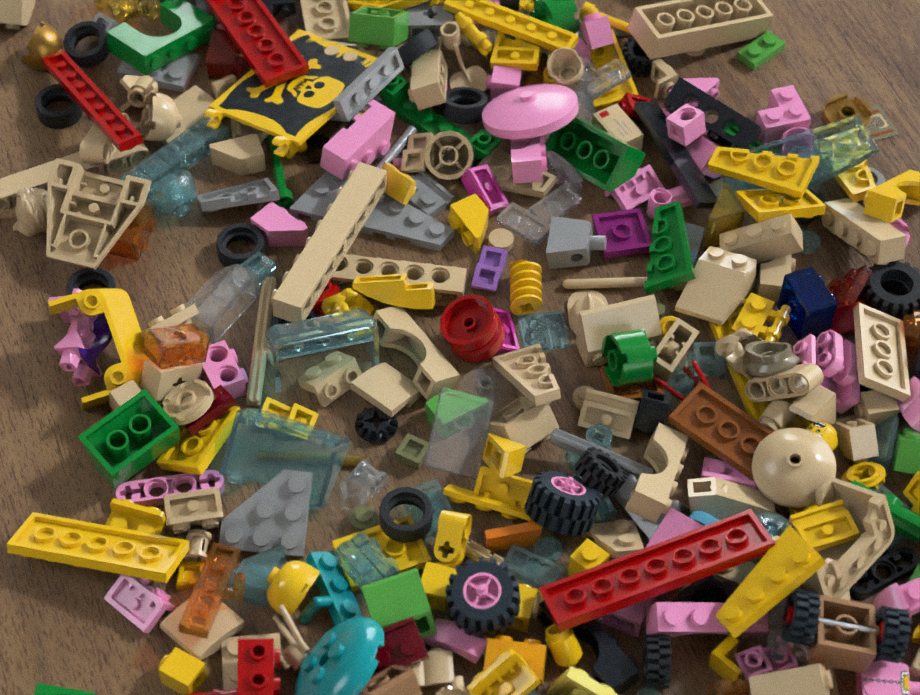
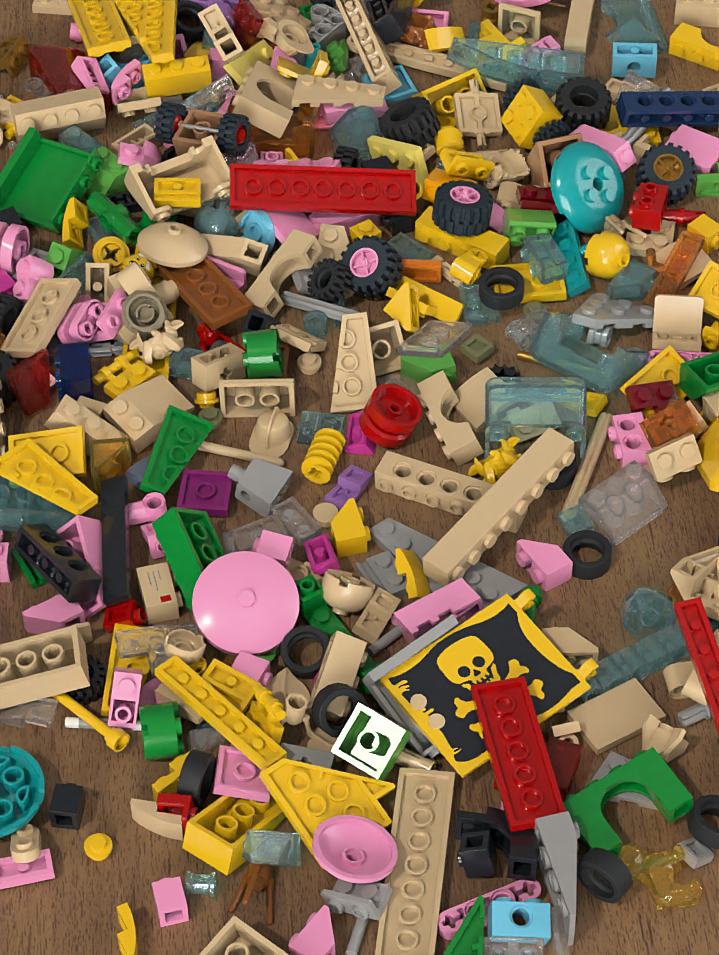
camera: 160 degrees left, 5 degrees down
(160, 117) = (646, 688): tan cylinder -> none
(188, 402) = (664, 389): tan tile -> none
(239, 195) = (572, 600): light grey wing -> none
(396, 291) = (452, 457): yellow slope -> none
(686, 124) = (99, 531): bright pink brick -> none
(770, 581) = (245, 148): yellow wing -> none

